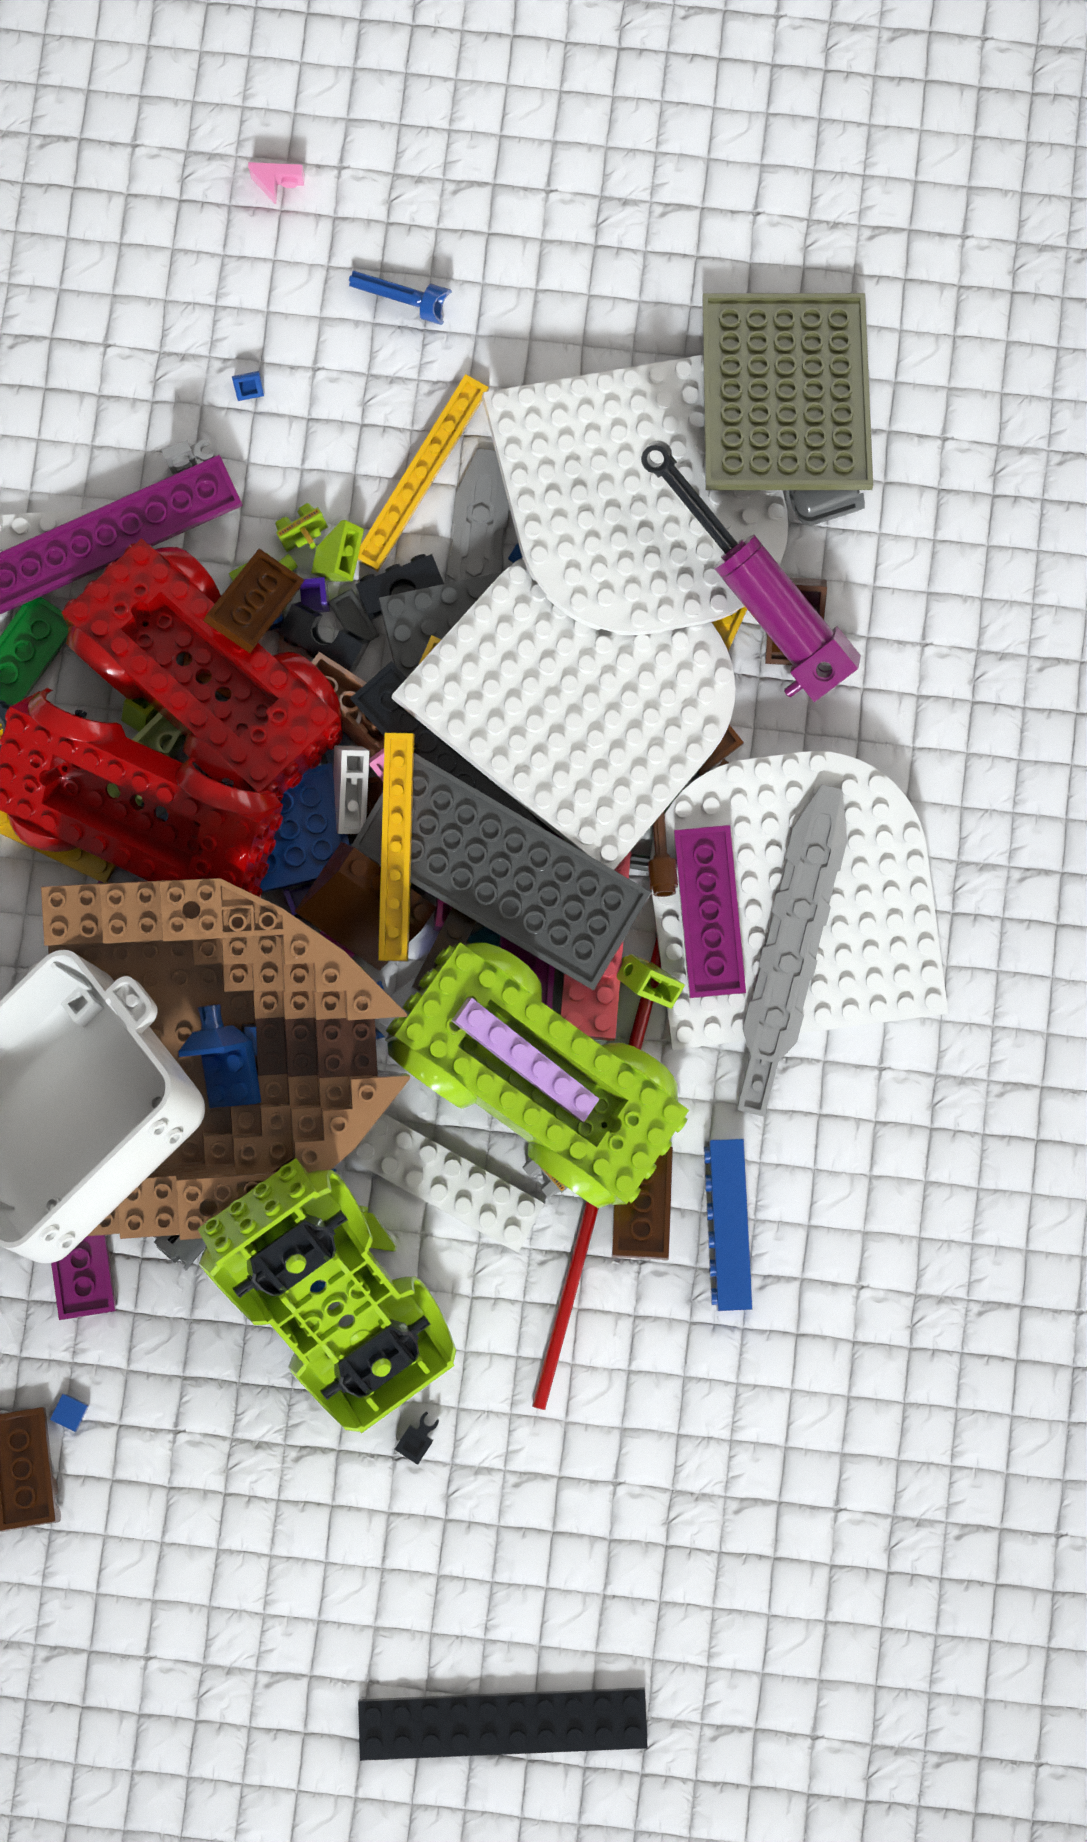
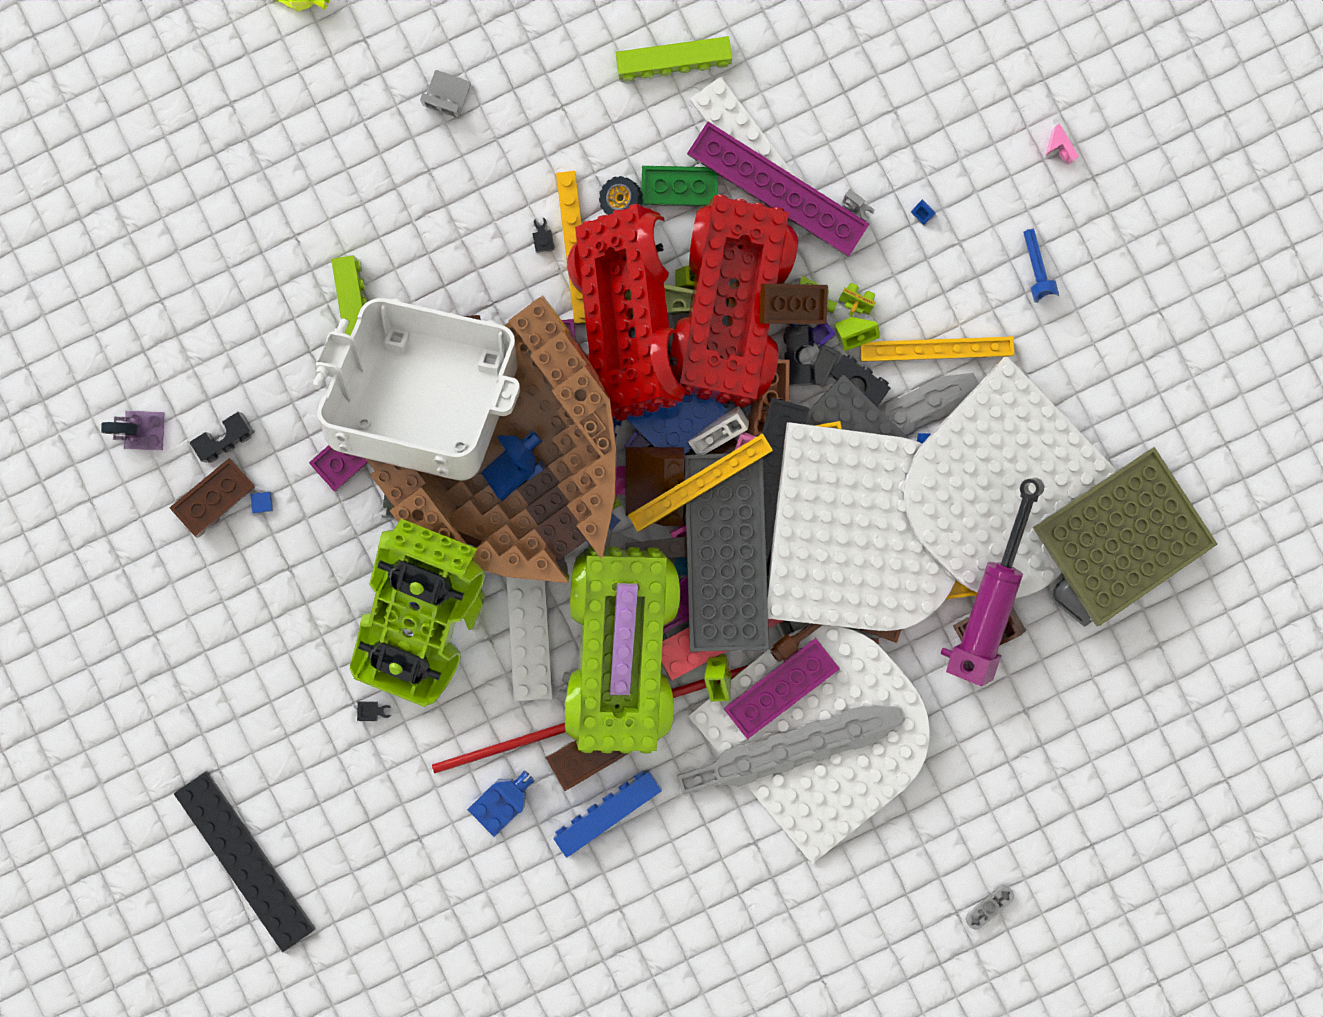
camera: 60 degrees right, 5 degrees up
(634, 1349) = (501, 803): none -> blue plate

